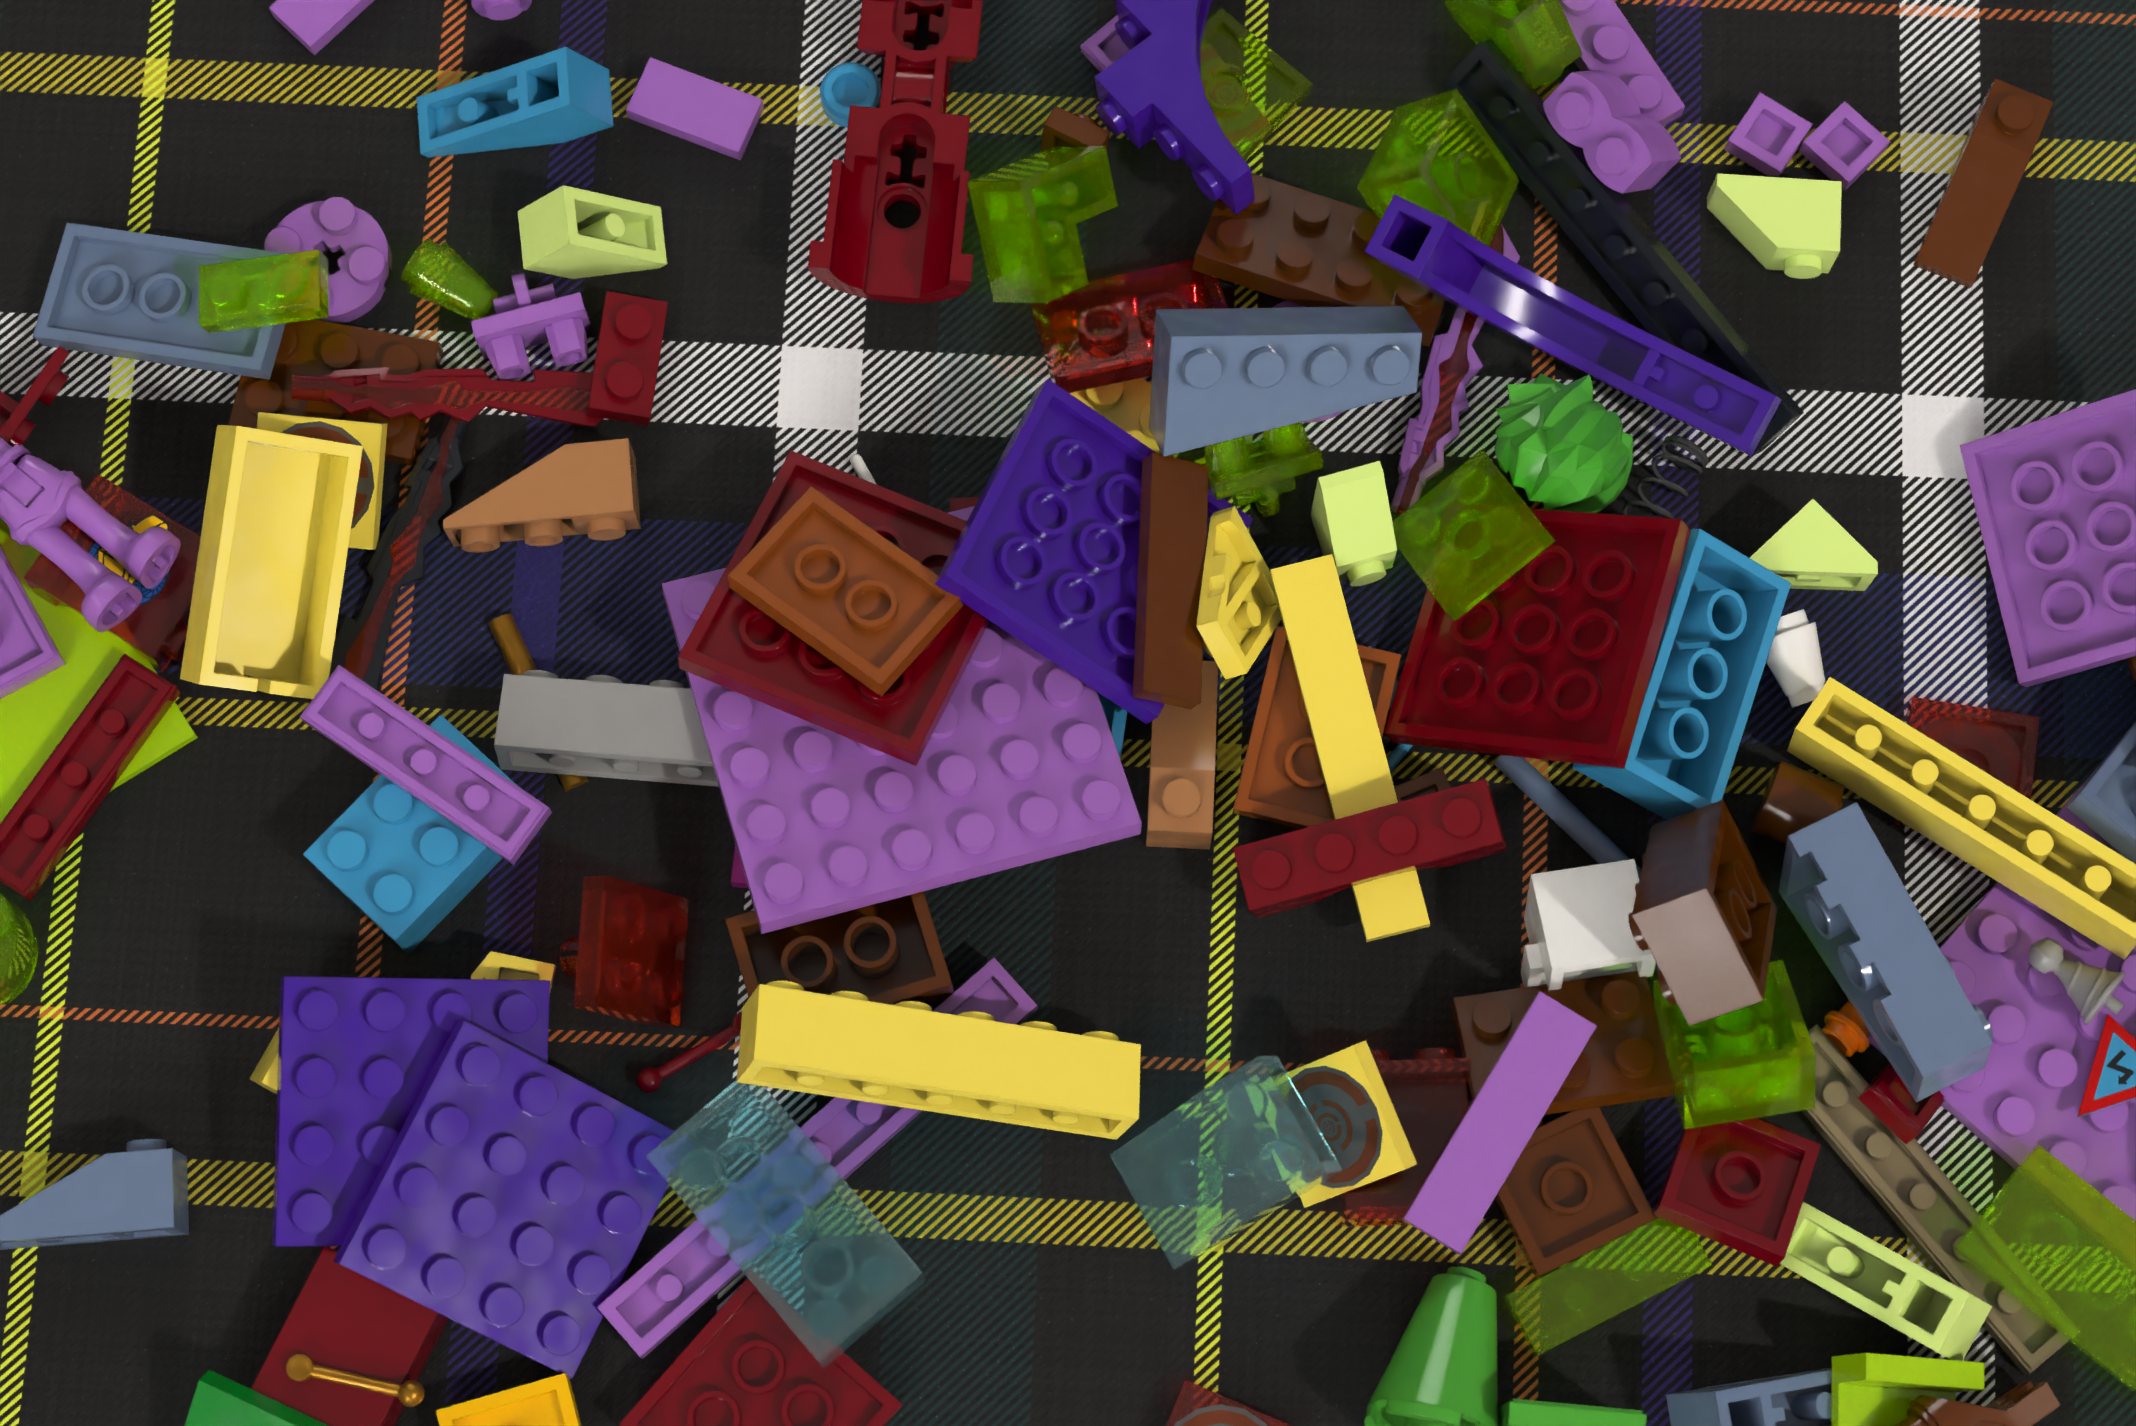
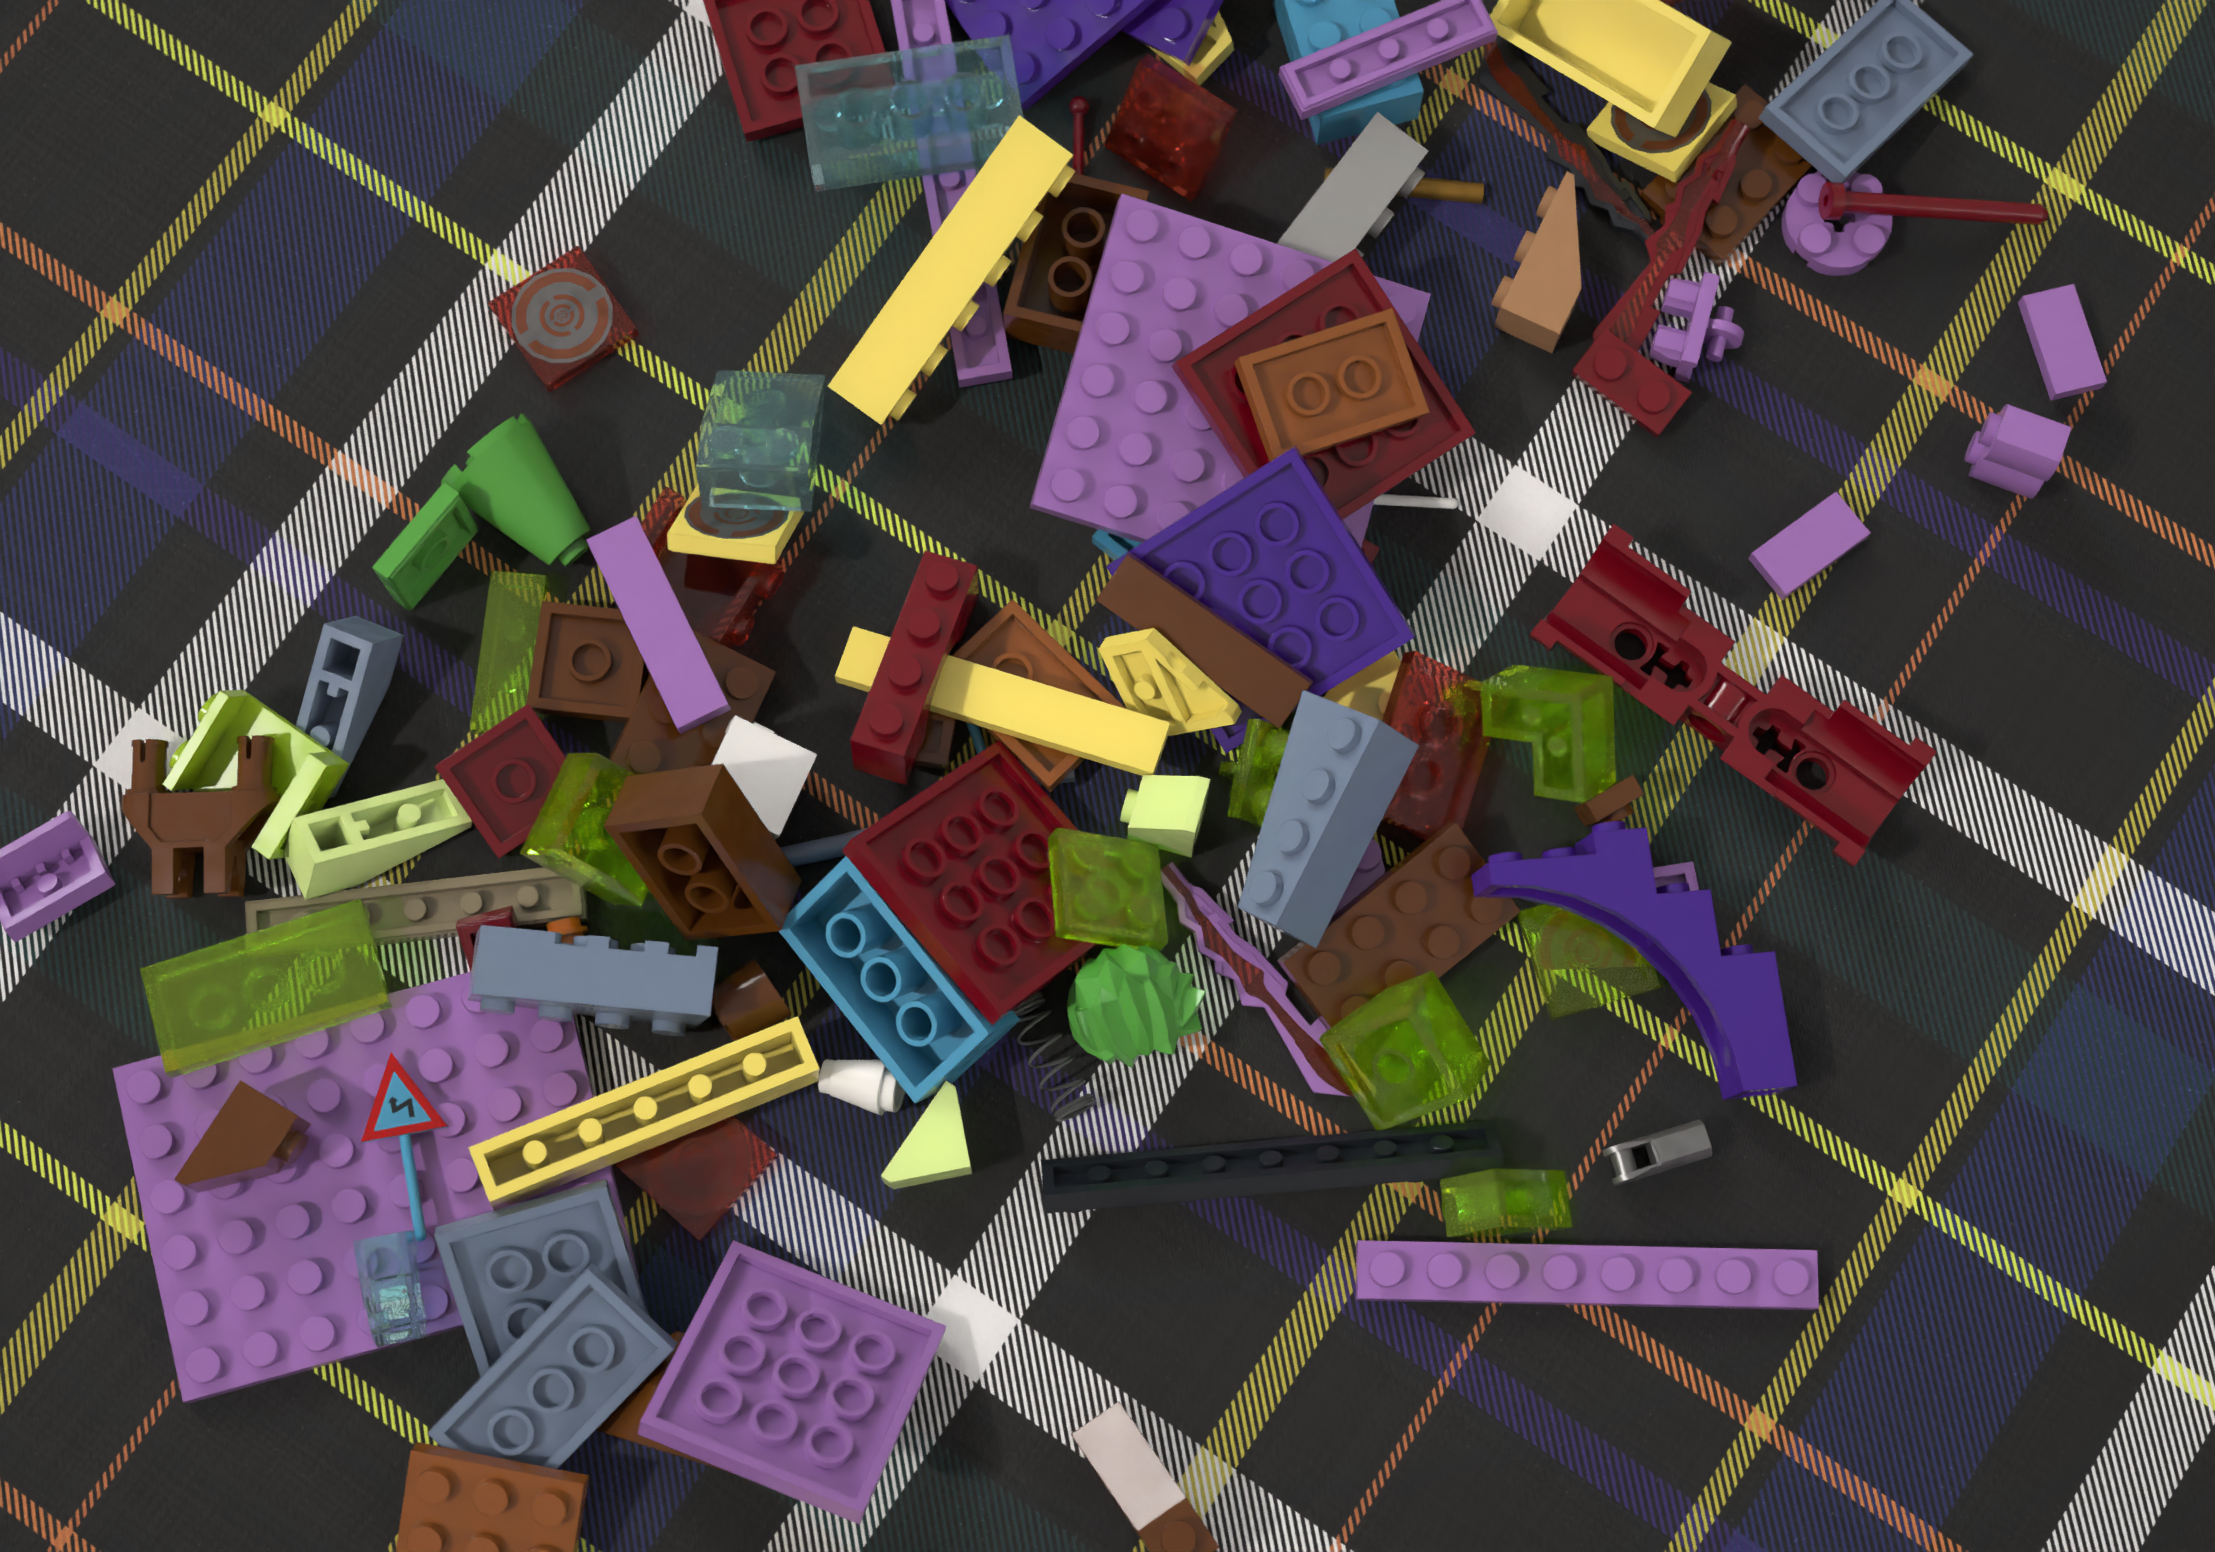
camera: 120 degrees right, 0 degrees up
(263, 291) = (1825, 138): clear neon green plate -> none
(267, 172) = (1835, 201): none -> dark red bar
(448, 281) = (1769, 290): clear neon green cone -> none
(518, 106) = (1882, 413): dark azure slope -> none
(590, 234) = (1743, 409): yellowish green slope -> none
(847, 86) = (1756, 663): dark azure tile -> none
(1184, 771) = (1060, 580): medium nougat slope -> none
(1569, 328) = (1288, 1030): dark purple arch -> none
(1605, 120) = (1366, 1213): medium lavender brick -> none
(1768, 136) = (1291, 1347): medium lavender plate -> none
(1782, 220) = (1210, 1309): yellowish green slope -> none
(1844, 145) = (1246, 1404): medium lavender plate -> none
(2086, 985) = (475, 1117): light grey piece -> none

